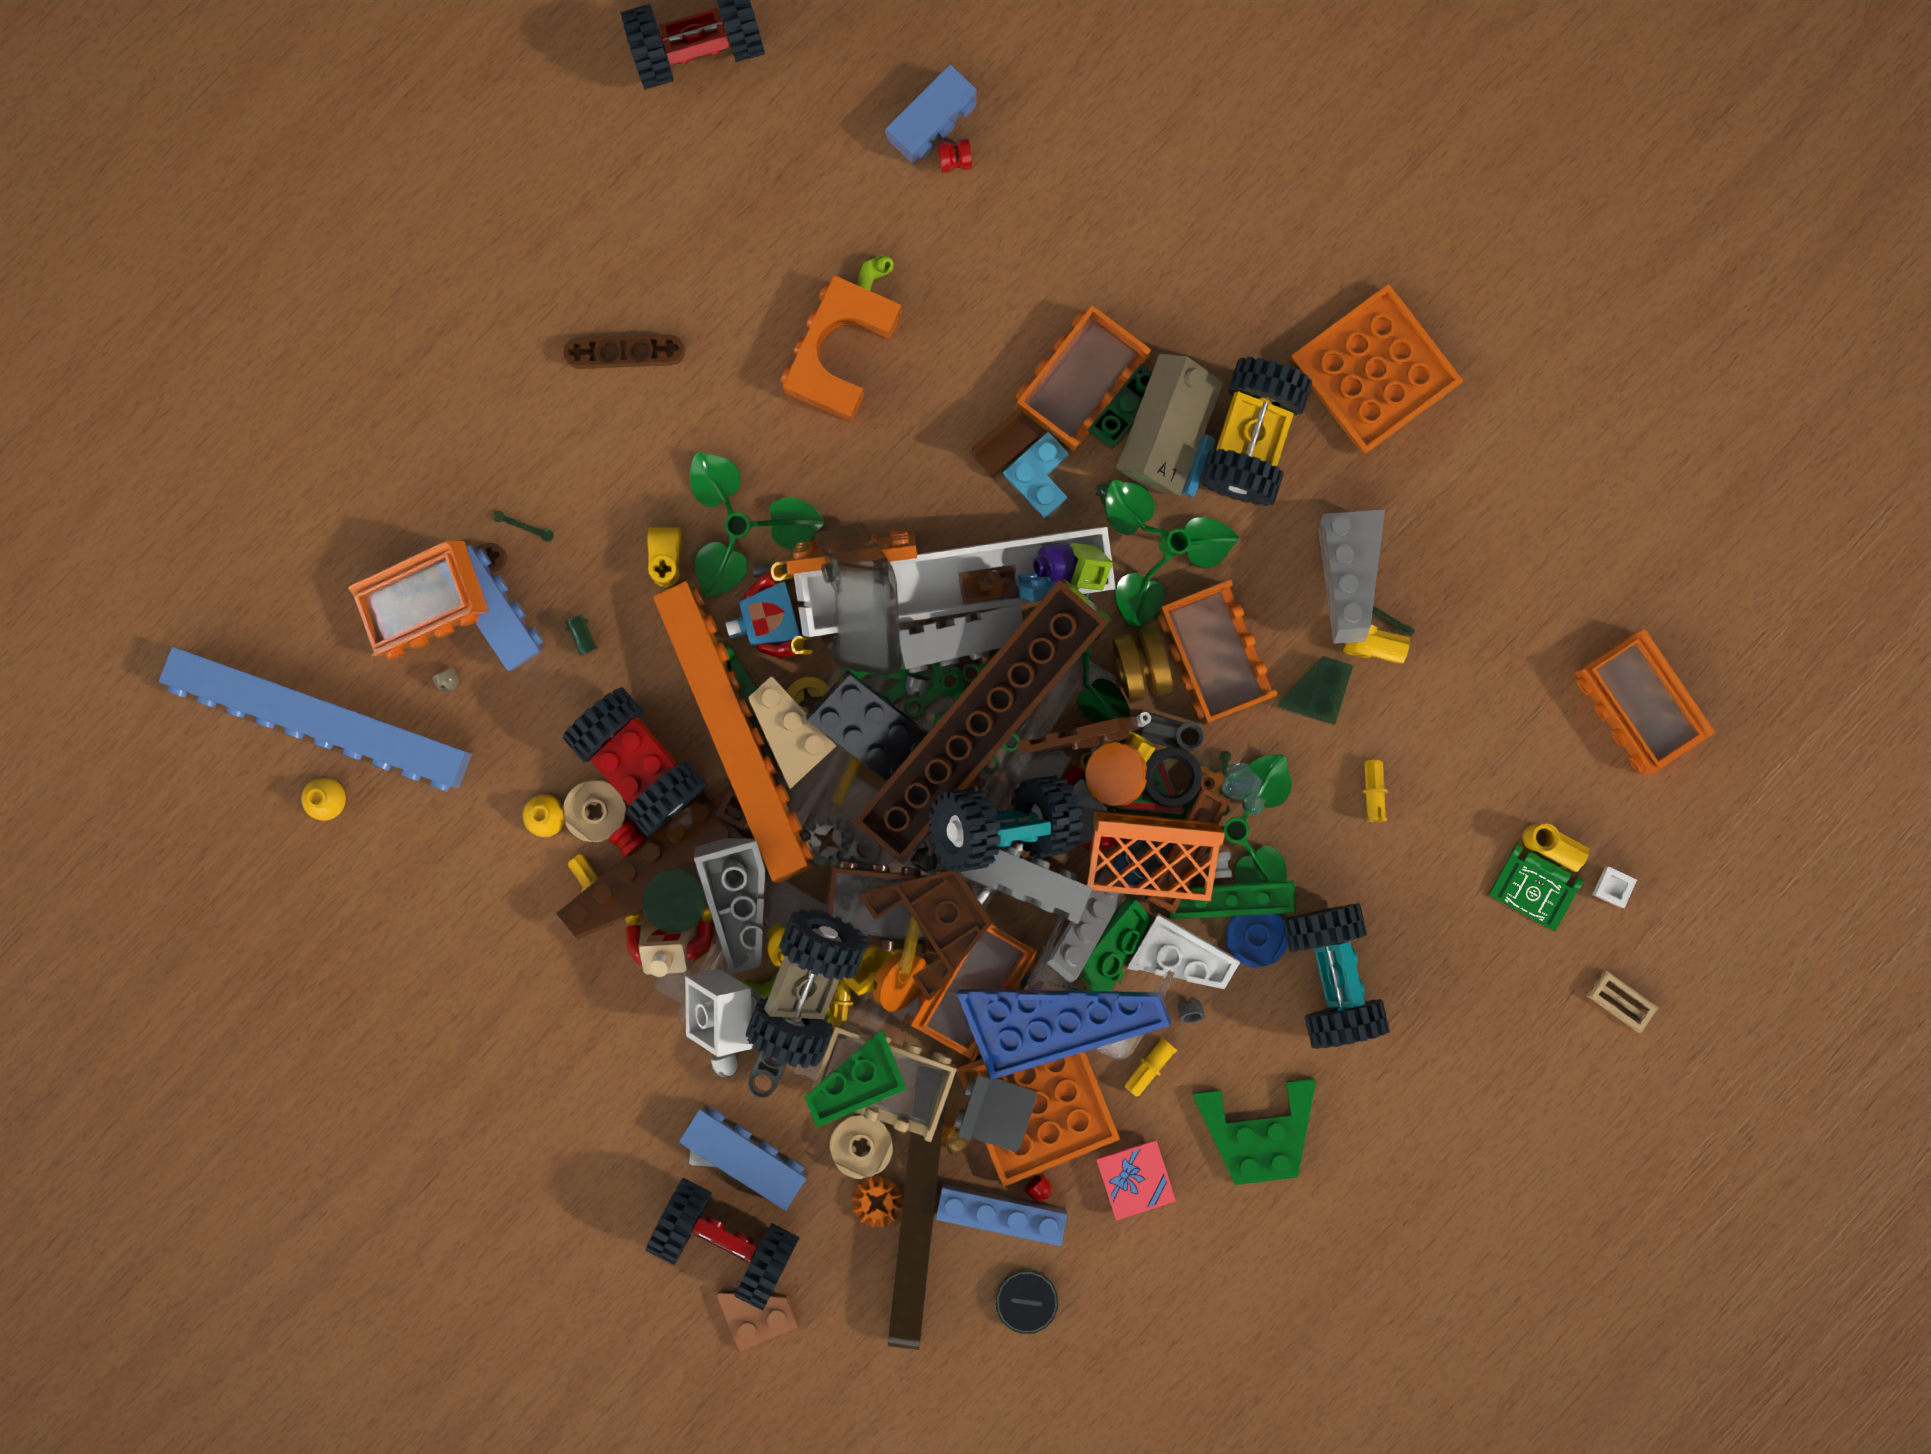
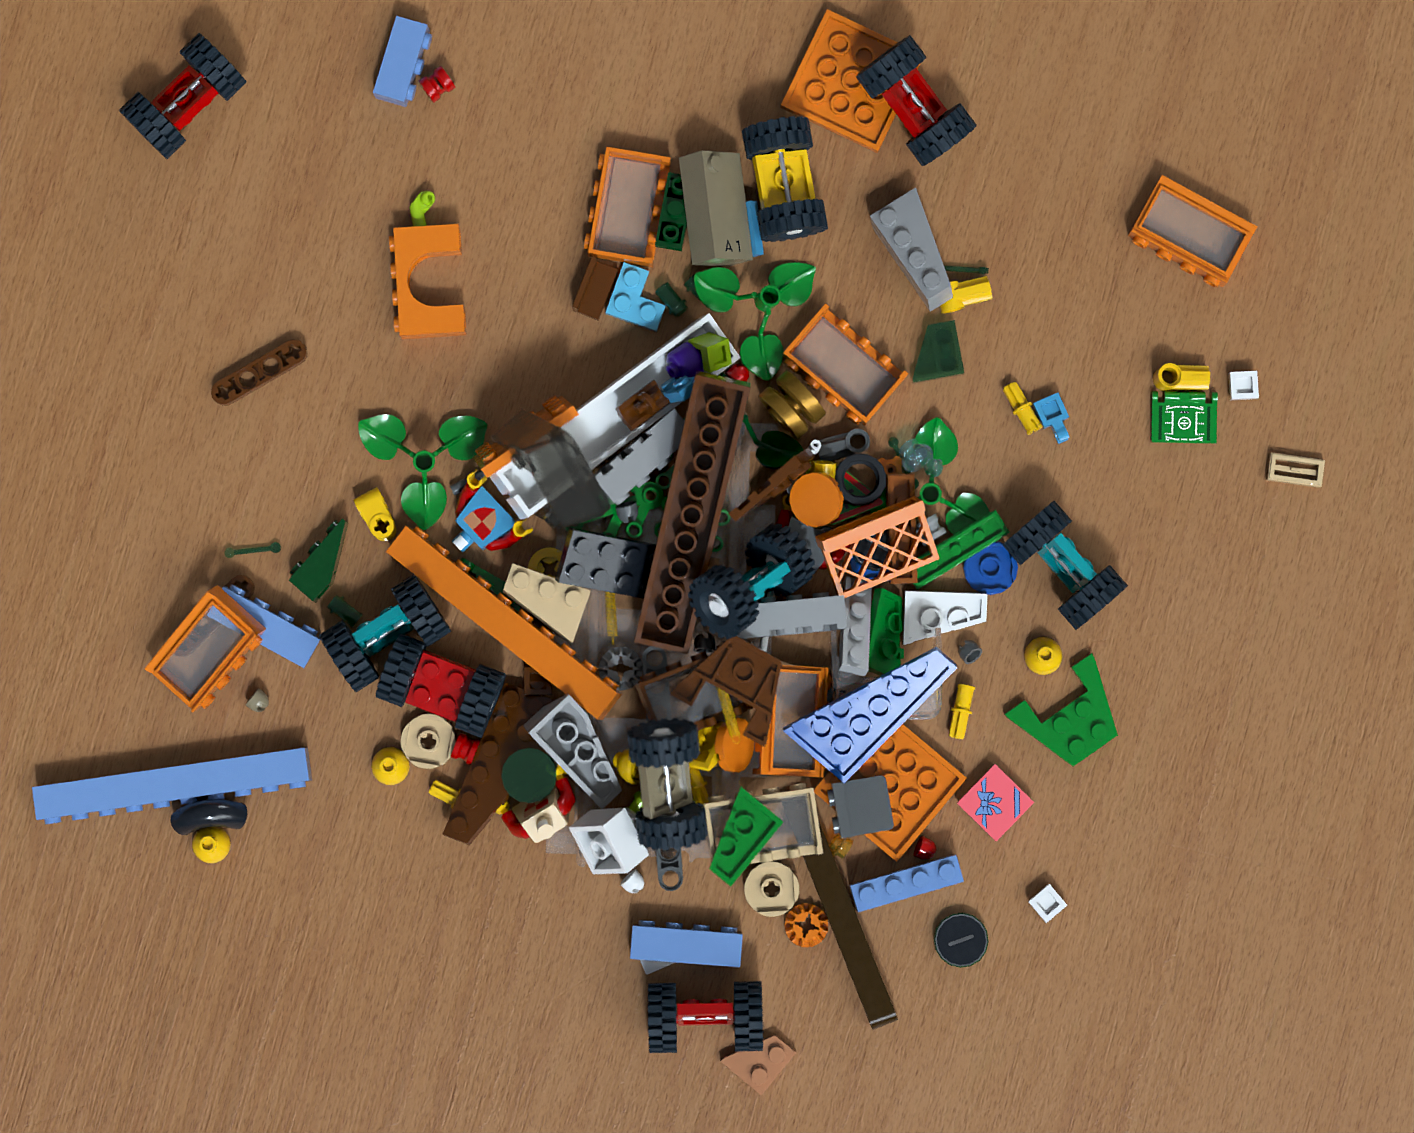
camera: 30 degrees left, 0 degrees up
(334, 768) = (209, 814): none -> black cylinder
(564, 679) = (352, 650): none -> black plate
(579, 579) = (320, 568): none -> dark green slope
(1076, 495) = (671, 300): none -> clear green pin
(1106, 603) = (738, 372): none -> red hinge
(1135, 1311) = (1047, 903): none -> white plate
(1263, 1054) = (1043, 655): none -> yellow brick
(1403, 812) = (1053, 413): none -> dark azure plate
(1431, 422) = (915, 101): none -> black plate

